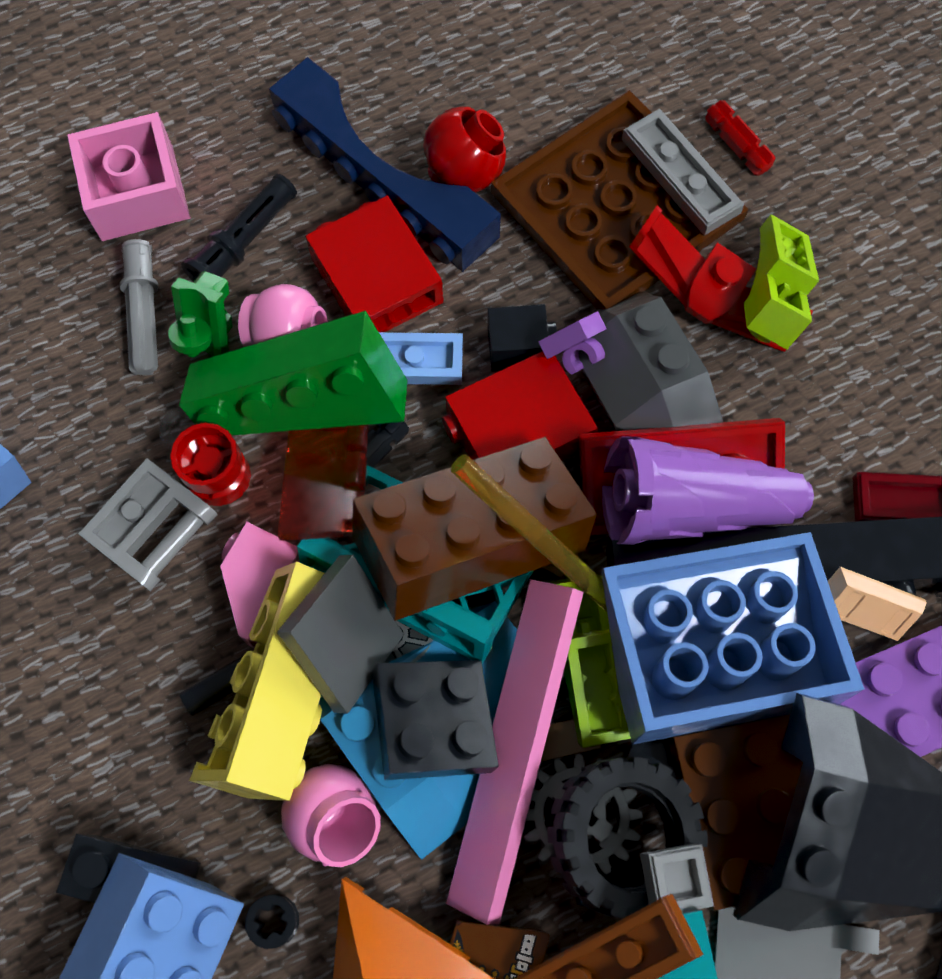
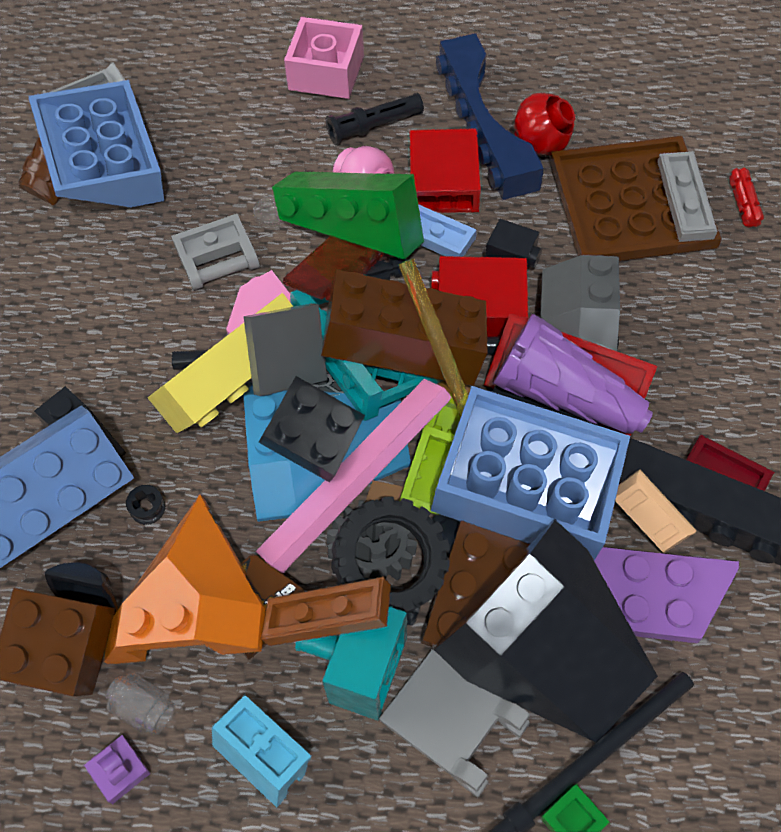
camera: 30 degrees right, 10 degrees down
(140, 309) = (292, 122): light grey axle -> none
(200, 316) = (316, 147): green hips -> none
(211, 464) = (272, 232): red wheel -> none
(331, 816) = (215, 454): bright pink piece -> none
(576, 338) = (544, 255): medium lavender tile -> none
(680, 873) = (407, 590): light grey tile -> none
(708, 286) = (668, 275): red plate -> none
(783, 279) = (713, 290): lime slope -> none

